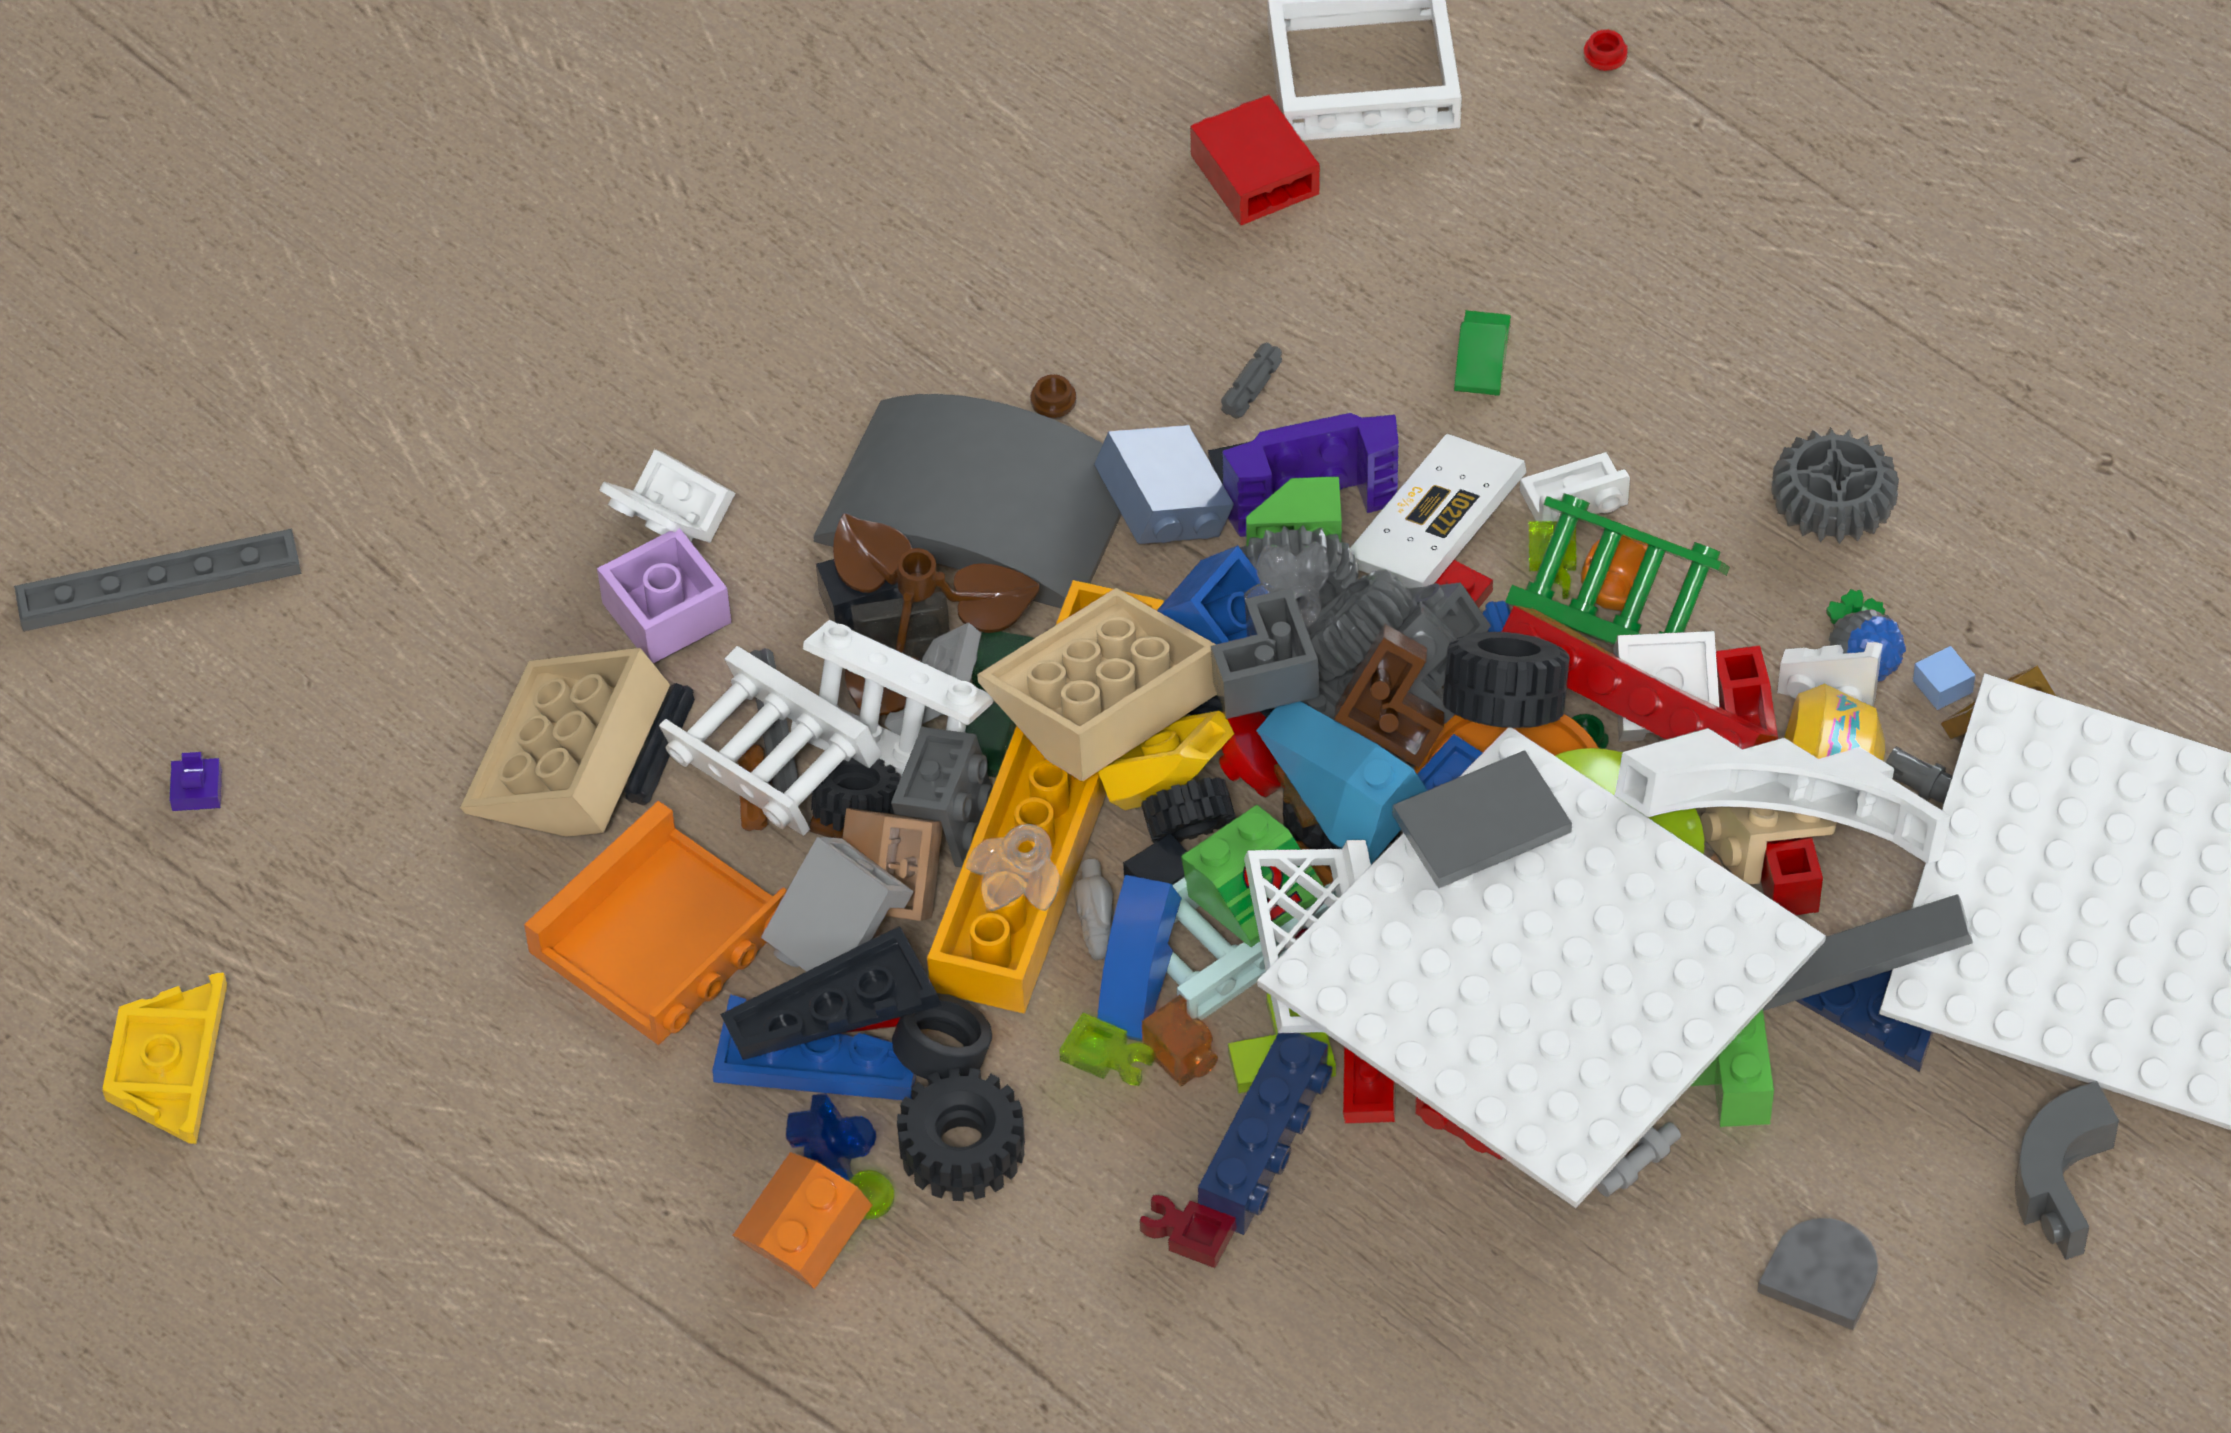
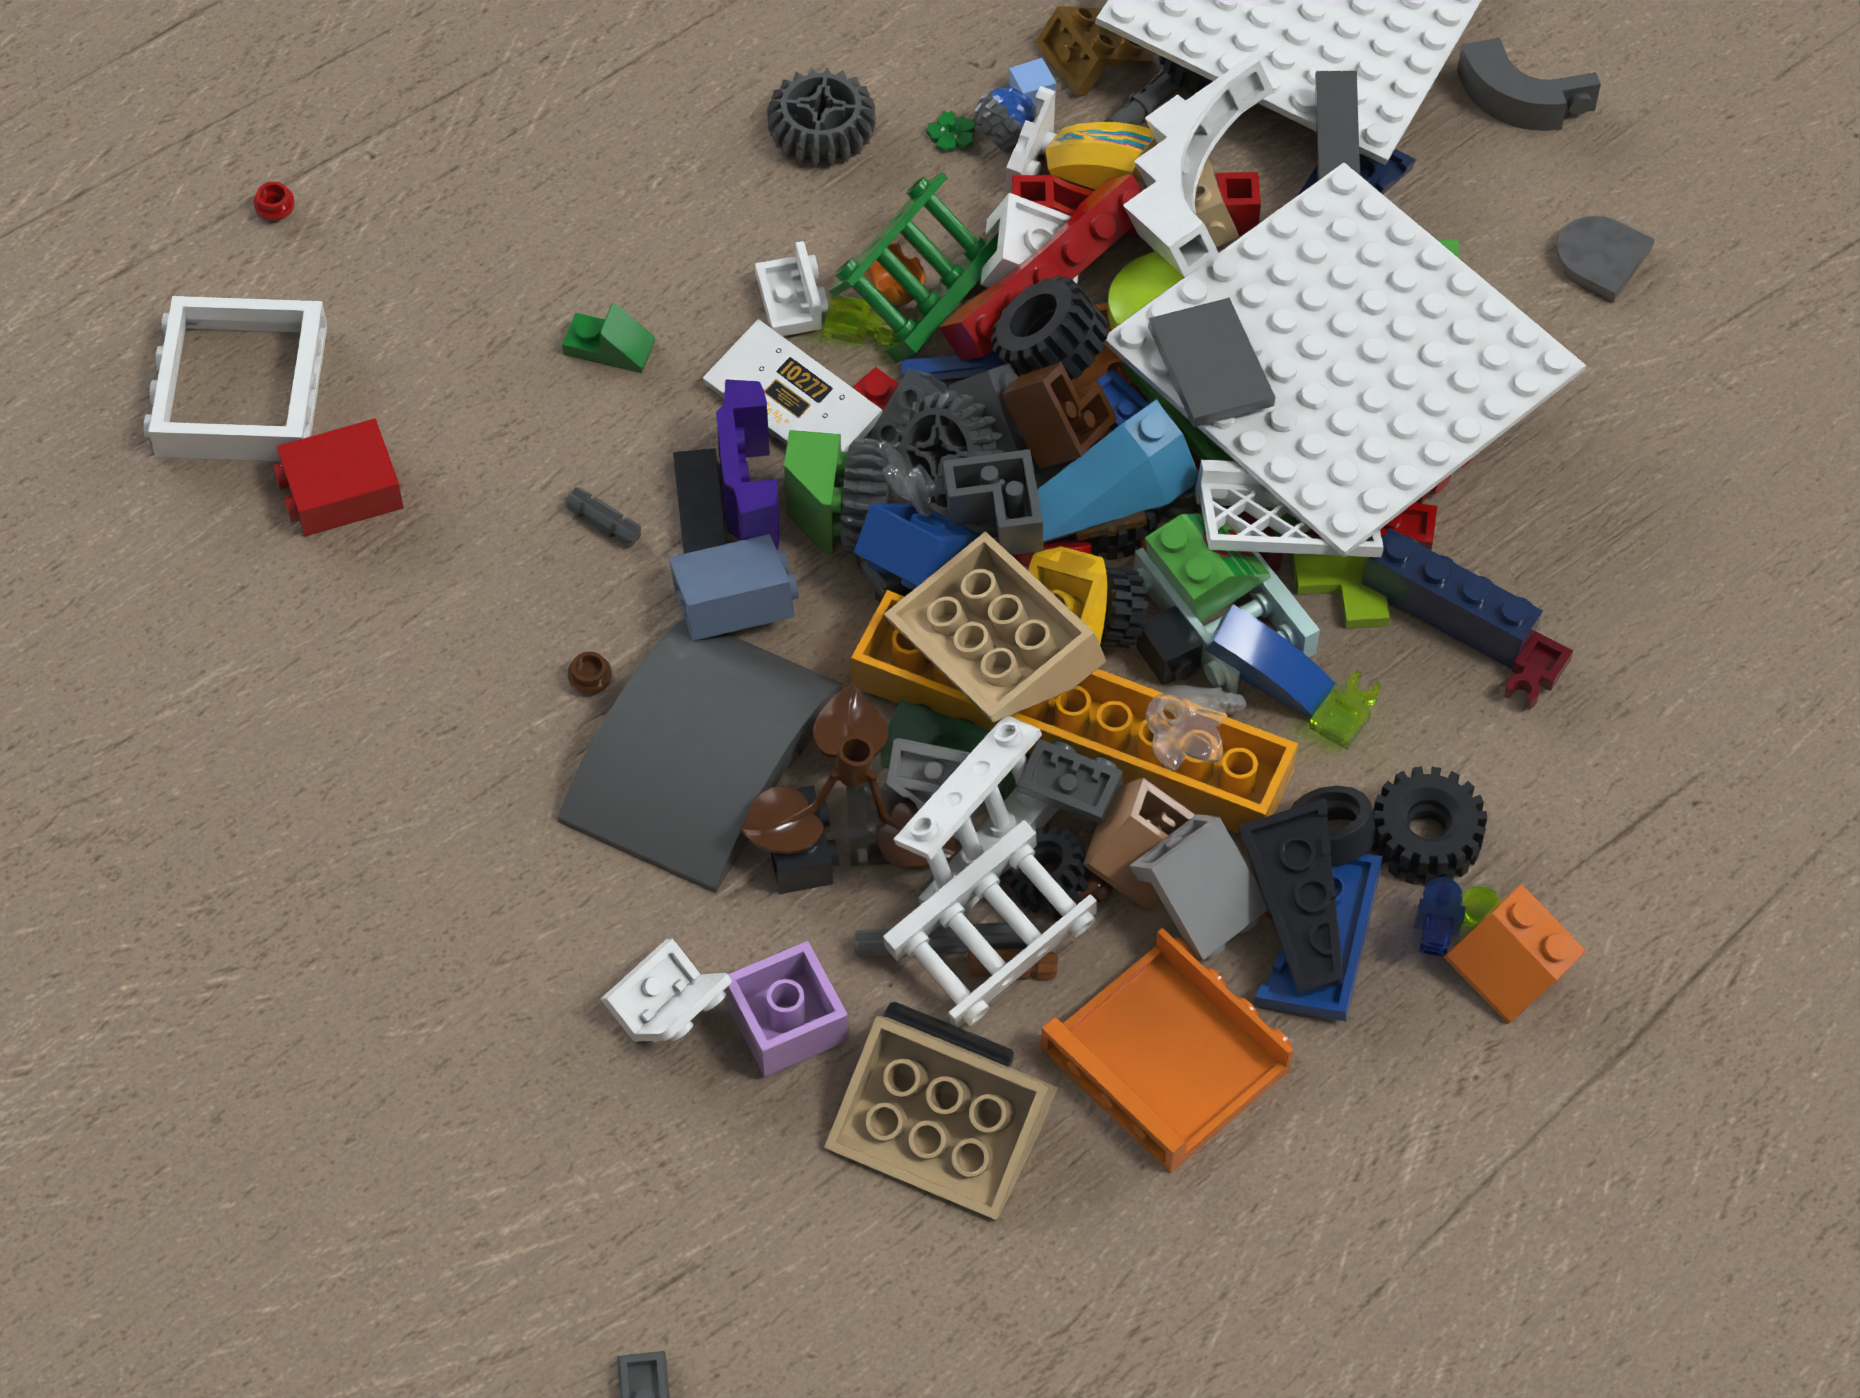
camera: 85 degrees left, 5 degrees up
(1179, 1042) = (1346, 651): clear orange brick -> none

